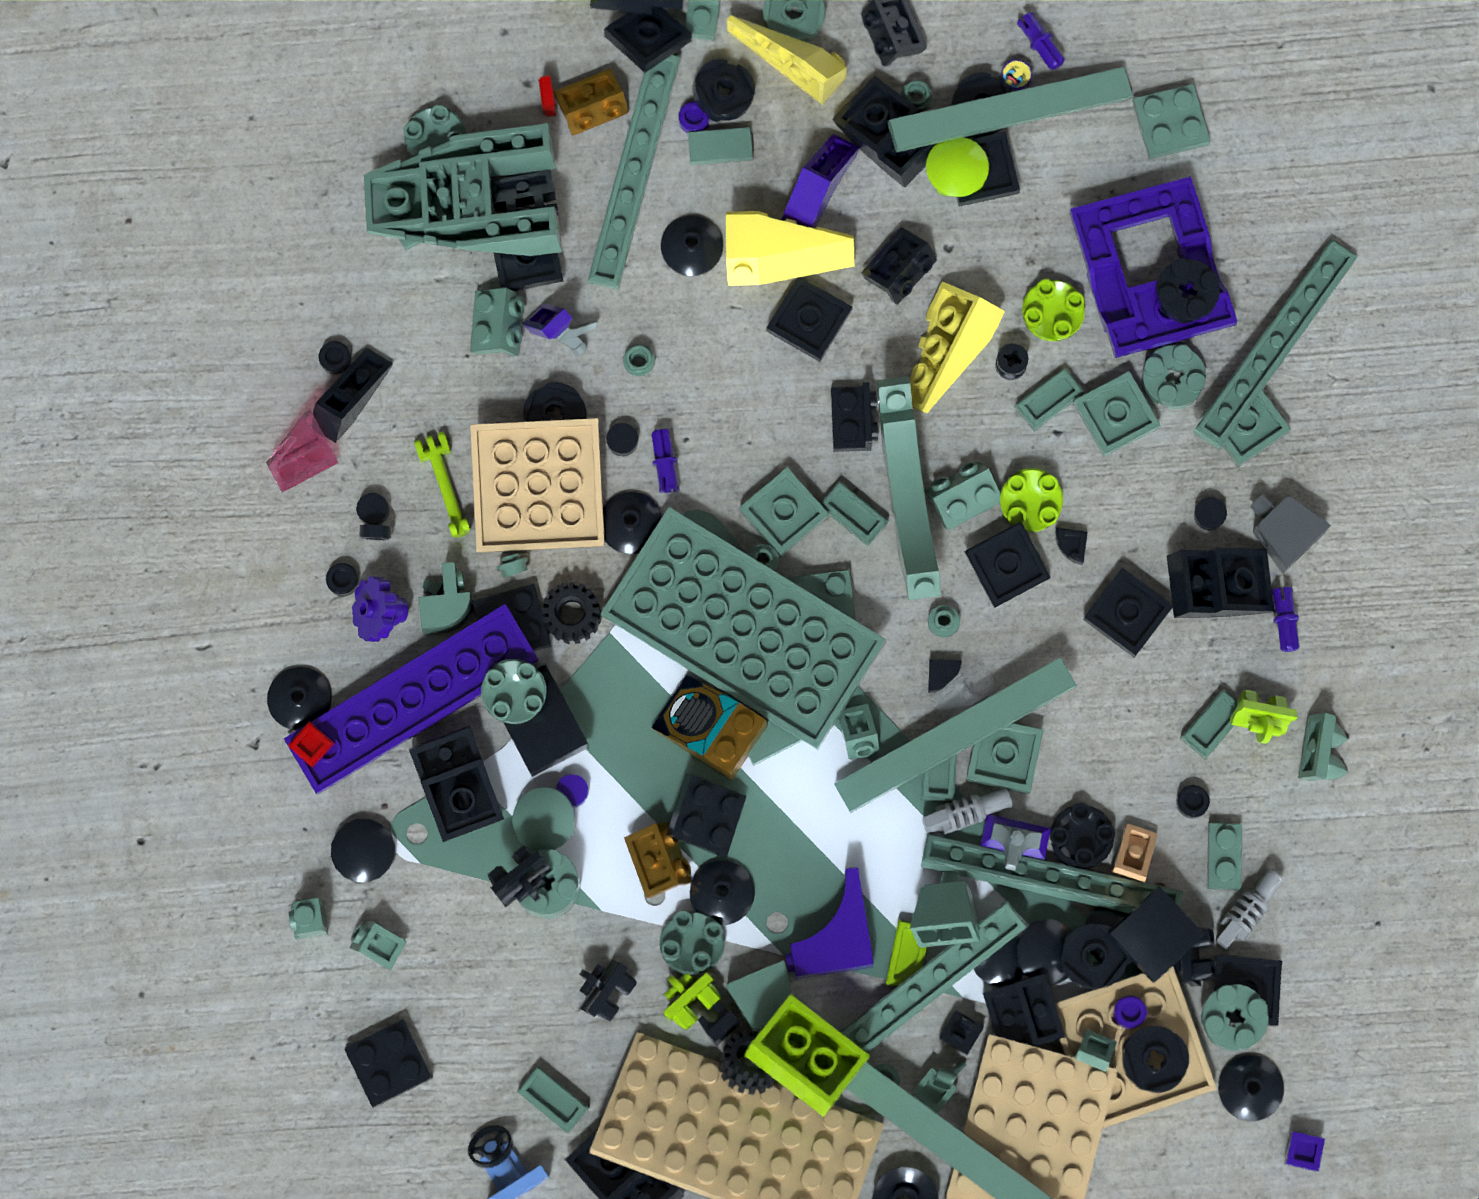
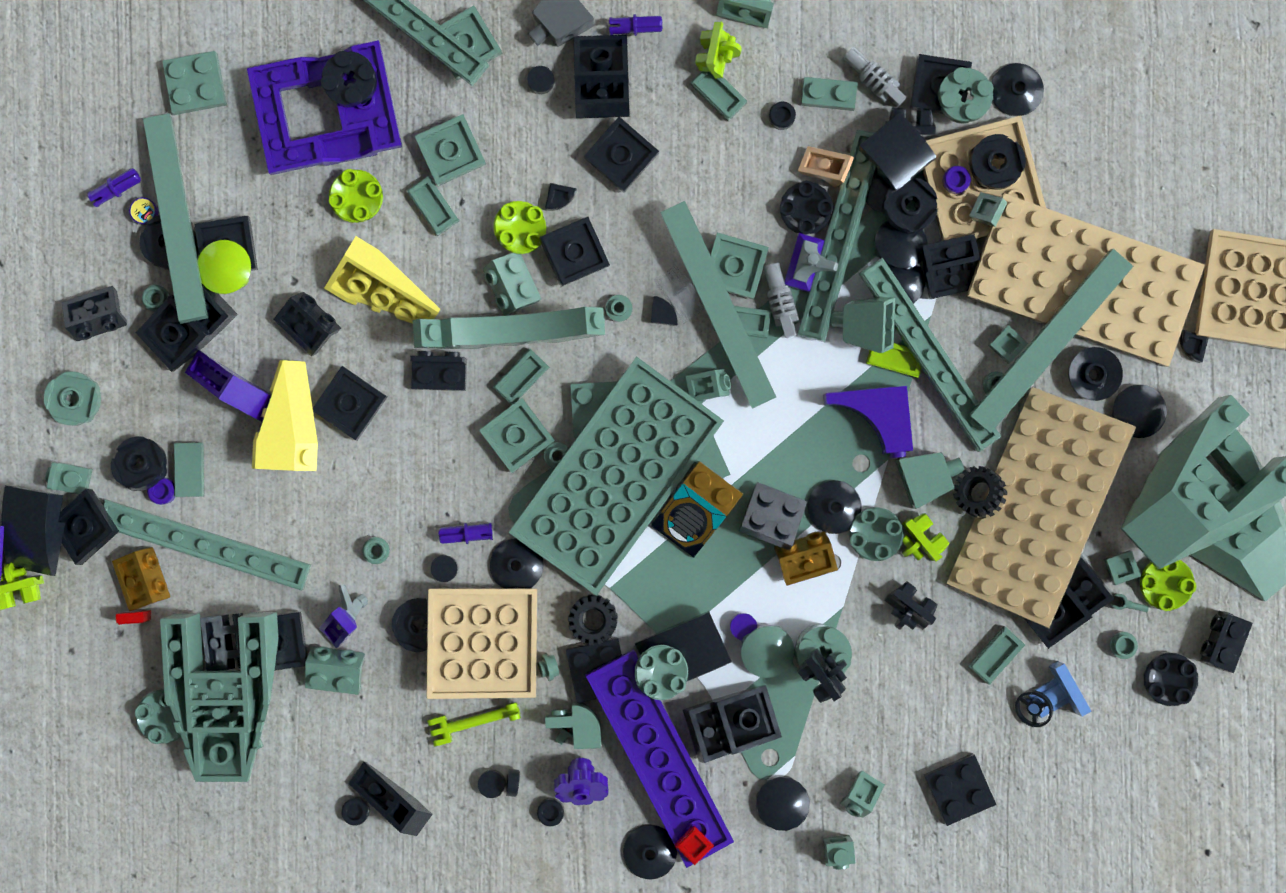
camera: 90 degrees left, 10 degrees up
(301, 454) = (440, 844): clear pink wing -> none
(695, 259) = (289, 495): black dish -> none
(722, 1027) = (948, 514): black tile -> none
(799, 61) = (118, 395): light yellow wedge -> none
(807, 1055) = (985, 444): lime brick -> none
(945, 1078) = (1001, 334): sand green hand -> none
(961, 1032) = (960, 319): black tile -> none
(1009, 368) = (403, 237): black wheel -> none
(1181, 360) = (406, 94): sand green plate -> none
(1304, 1151) = (1072, 50): dark purple plate -> none

